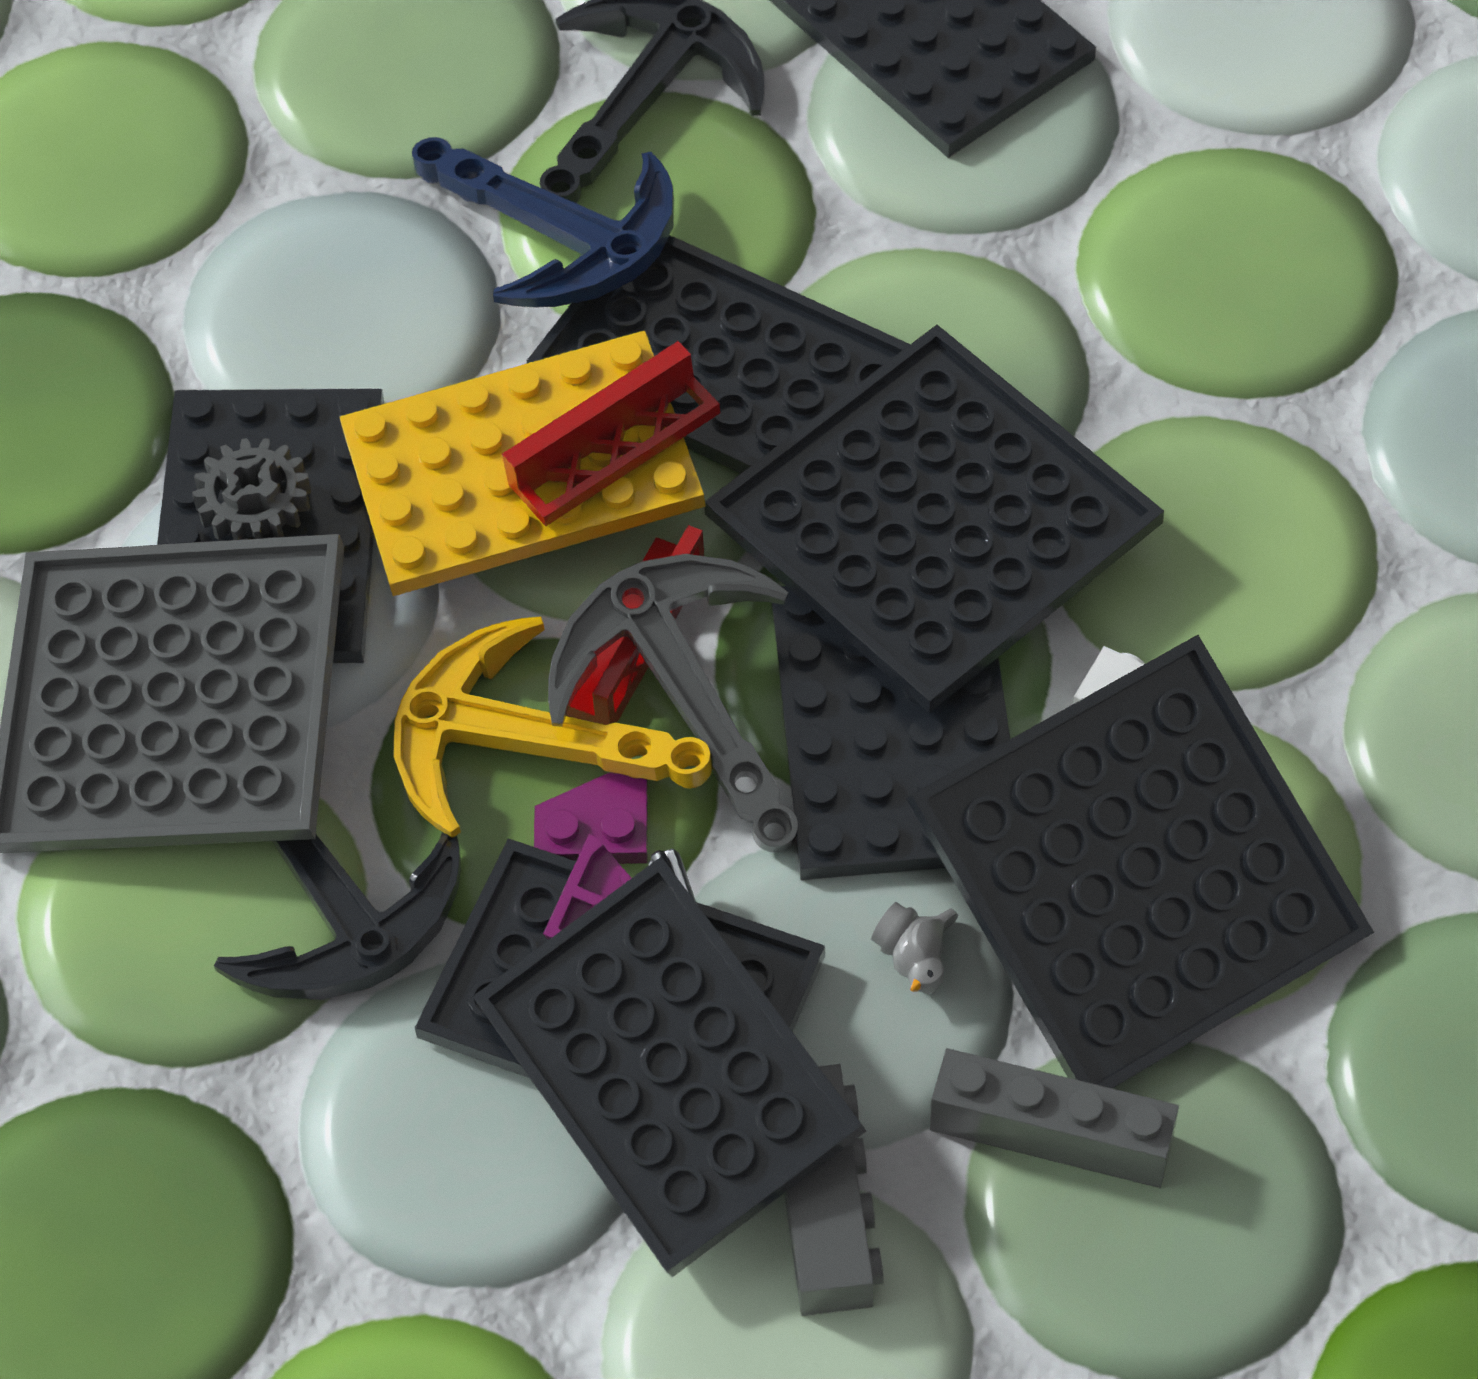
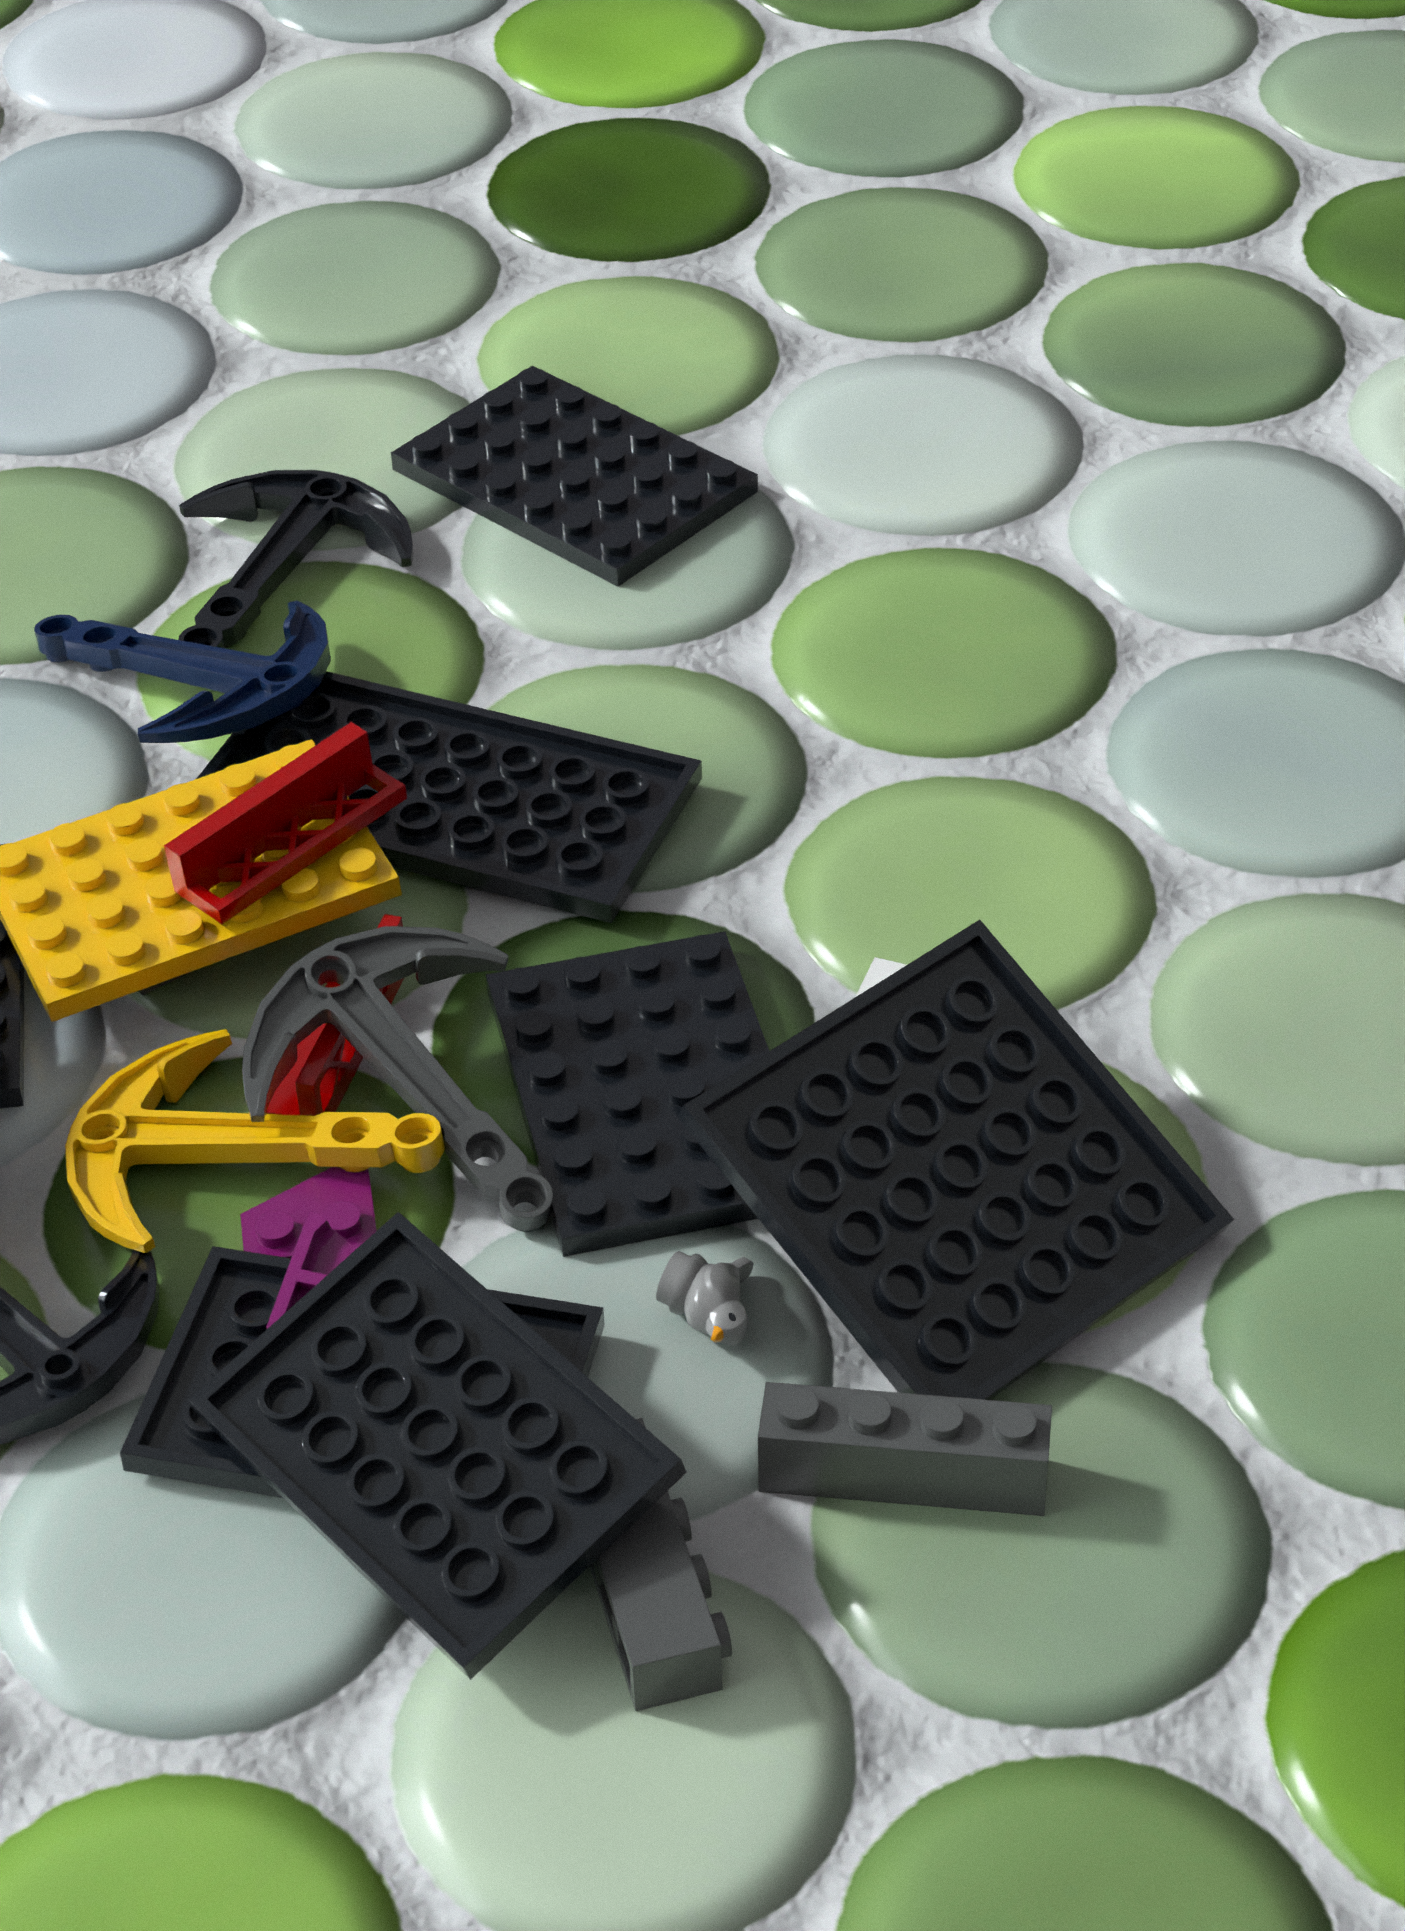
camera: 10 degrees left, 15 degrees down
(933, 516) = (659, 881): black plate -> none

